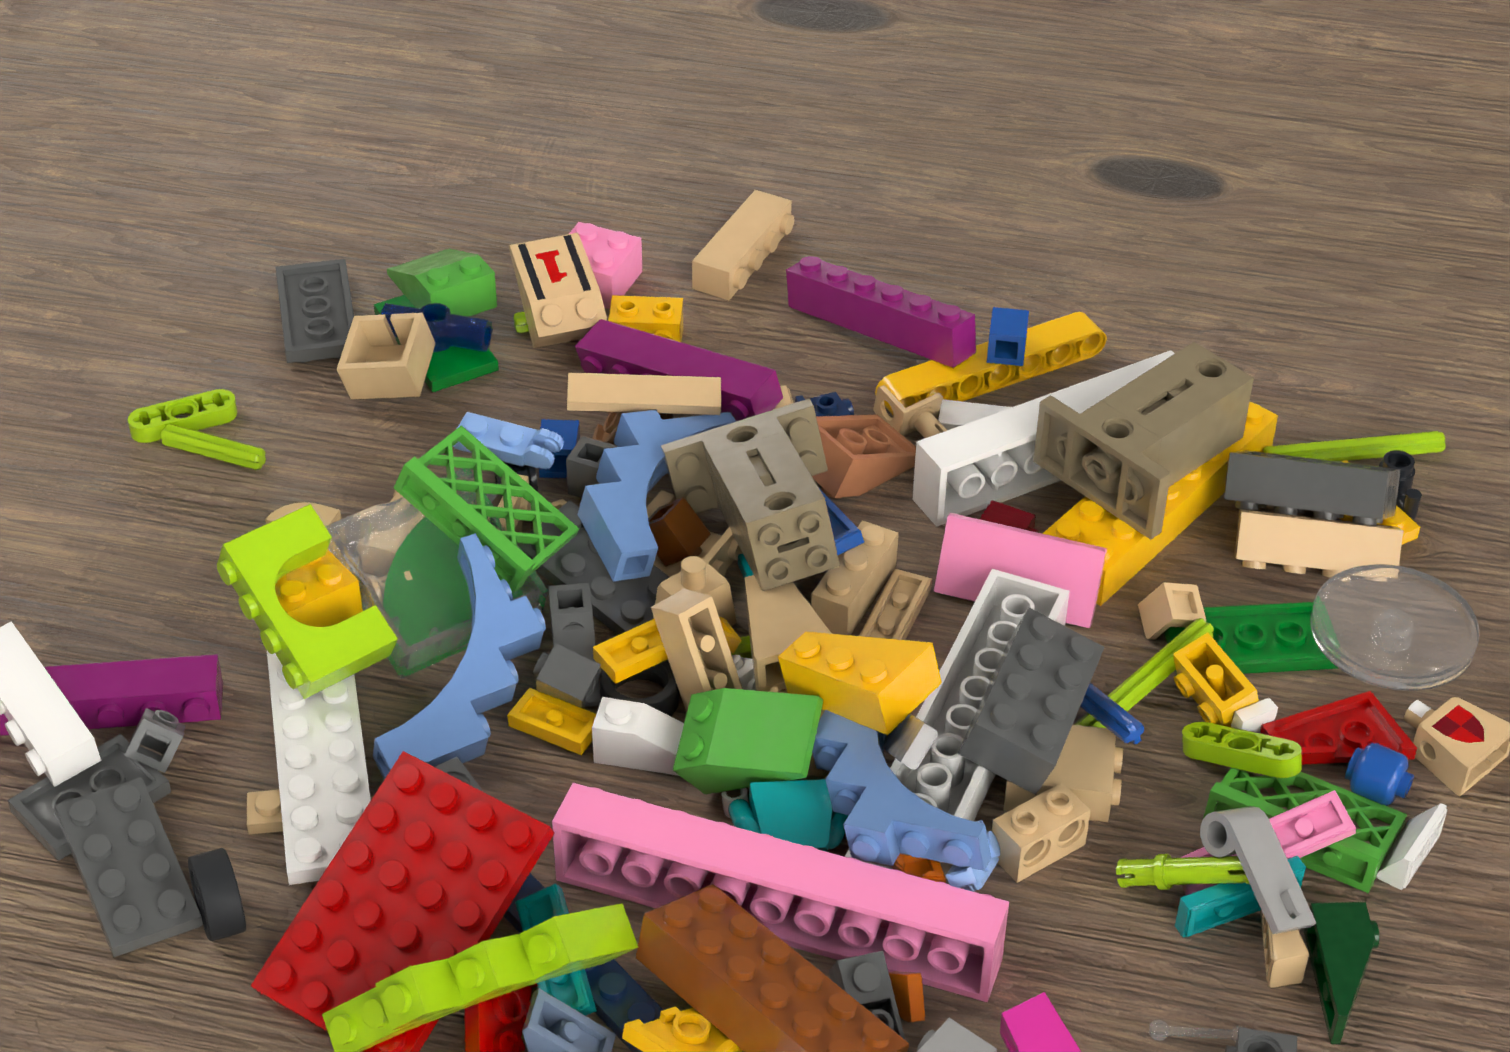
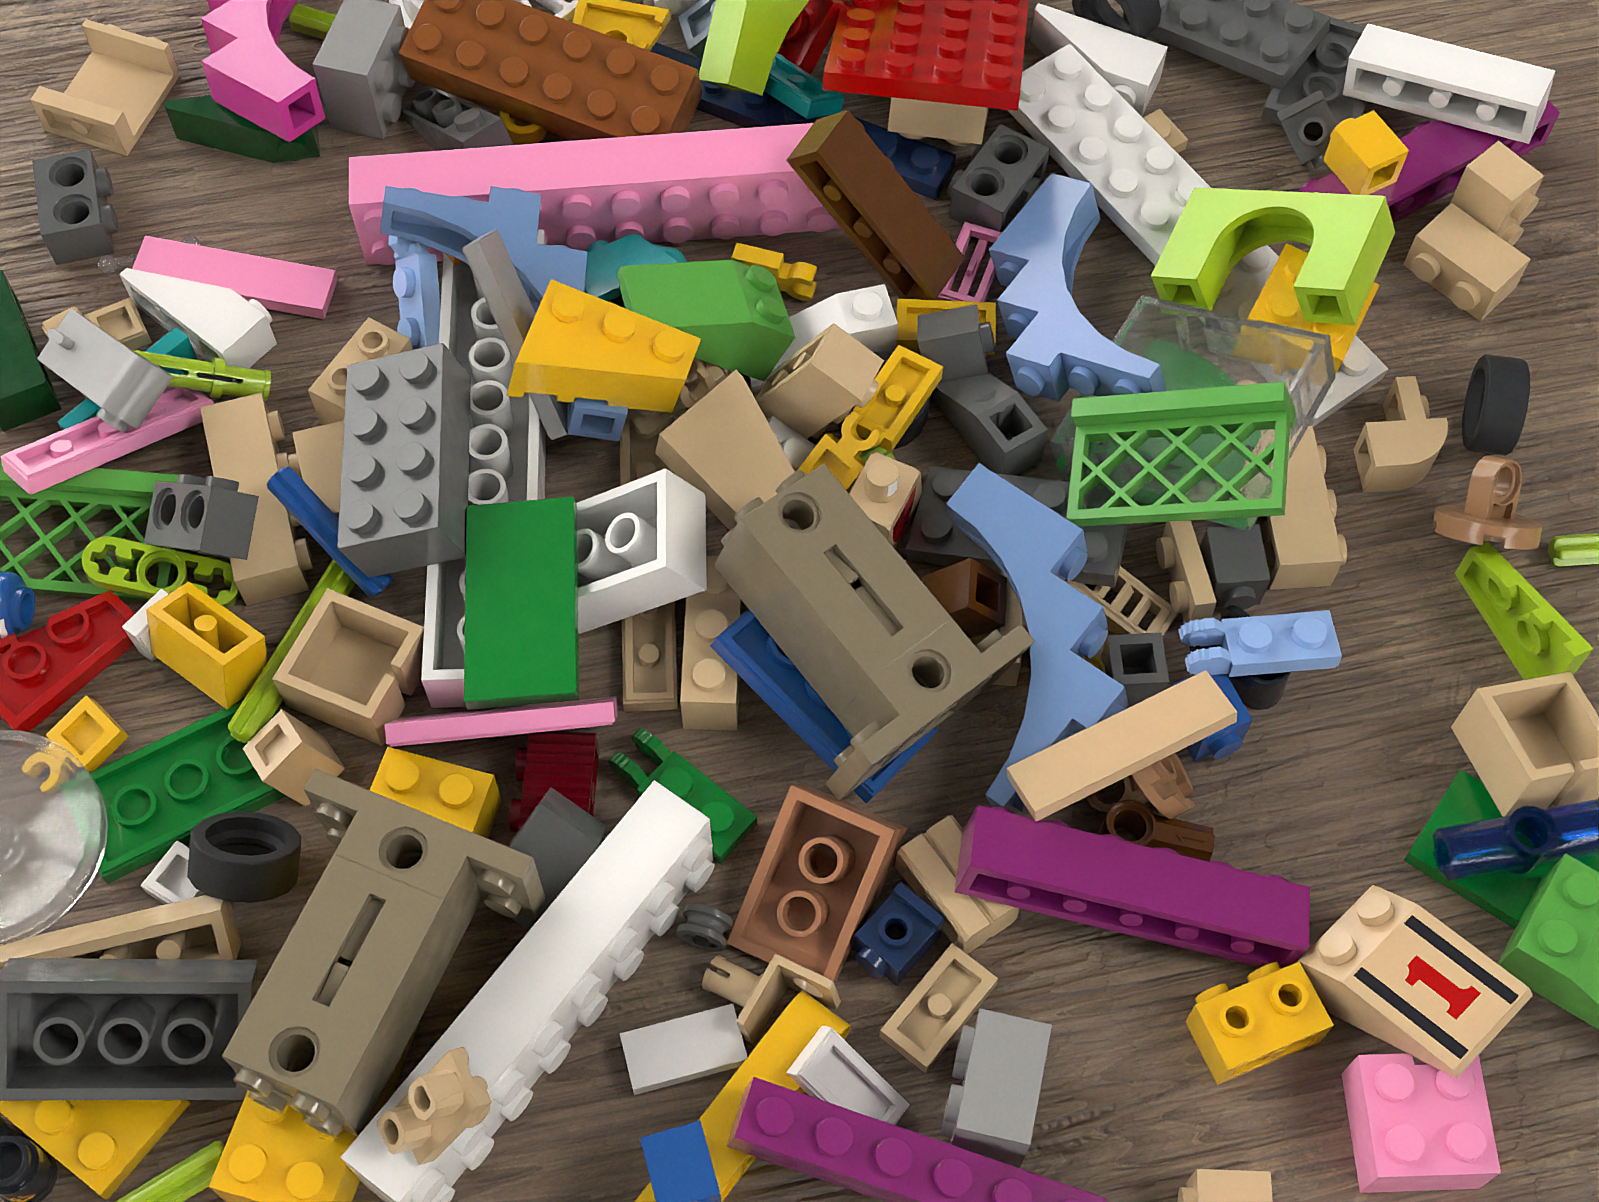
camera: 155 degrees right, 20 degrees up
(84, 624) = (1499, 191): none -> tan brick
(136, 620) = (1466, 261): none -> tan brick
(153, 671) = (1365, 154): none -> yellow brick
(210, 506) = (1496, 404): none -> black tyre
(258, 868) = (1123, 60): none -> white slope
(299, 463) = (1490, 509): none -> medium nougat tile
(329, 417) = (1519, 617): none -> lime wing
(505, 767) = (985, 236): none -> bright pink tile
(568, 755) = (875, 207): none -> reddish brown brick
(663, 793) = (792, 278): none -> yellow plate
(812, 326) = (1000, 1086): none -> light grey brick
(823, 380) = (938, 1007): none -> tan plate
(893, 361) = (839, 1075): none -> white tile
(893, 601) = (639, 548): none -> white brick
(913, 522) = (728, 818): none -> green hinge
(982, 598) = (521, 603): none -> green tile
(1025, 489) = (560, 841): none -> dark grey brick
(1124, 626) = (352, 666): none -> tan piece
(1127, 972) = (270, 281): none -> bright pink tile
(1128, 348) = (436, 1109): none -> tan hips
(1154, 784) = (245, 449): none -> tan brick
(1163, 937) = (210, 315): none -> white slope
(1198, 537) = (244, 856): none -> black tyre
(1202, 737) = (202, 516): none -> dark grey brick
(1241, 973) = (122, 322): none -> tan tile
(1265, 588) = (169, 878): none -> white tile
(1320, 677) = (88, 733): none -> yellow plate

